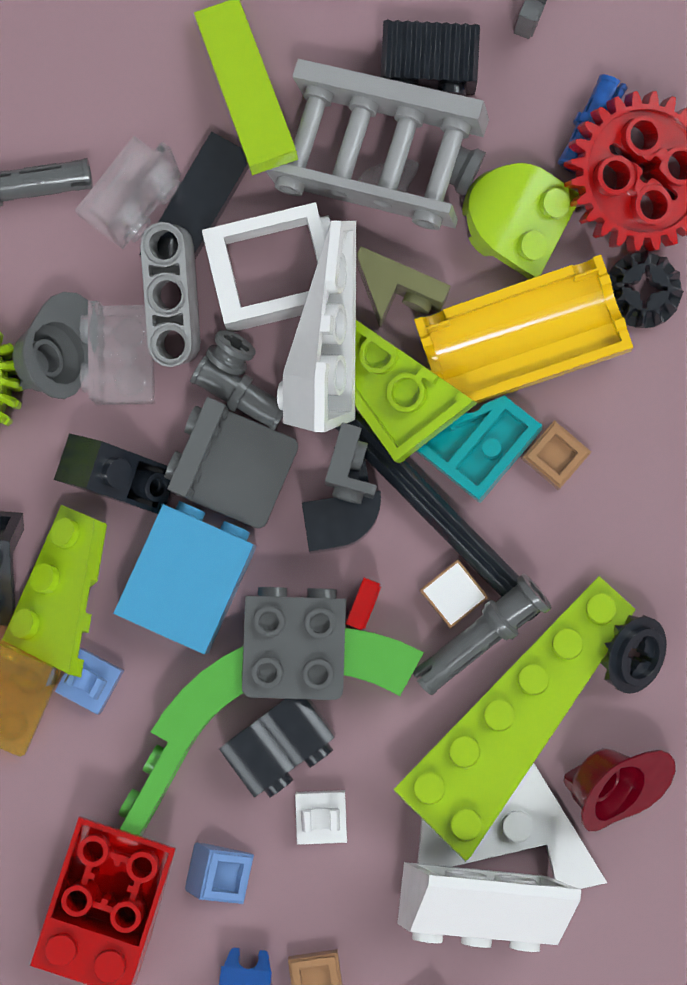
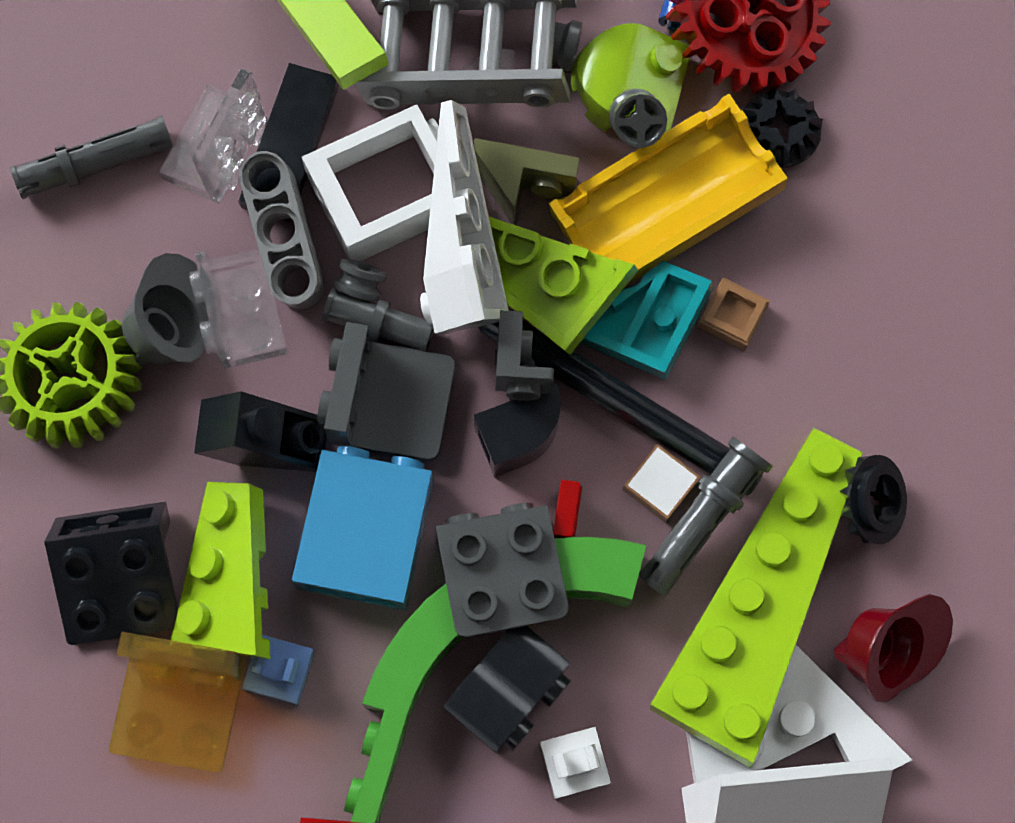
camera: 20 degrees left, 10 degrees down
(512, 271) = (639, 128): none -> dark grey wheel

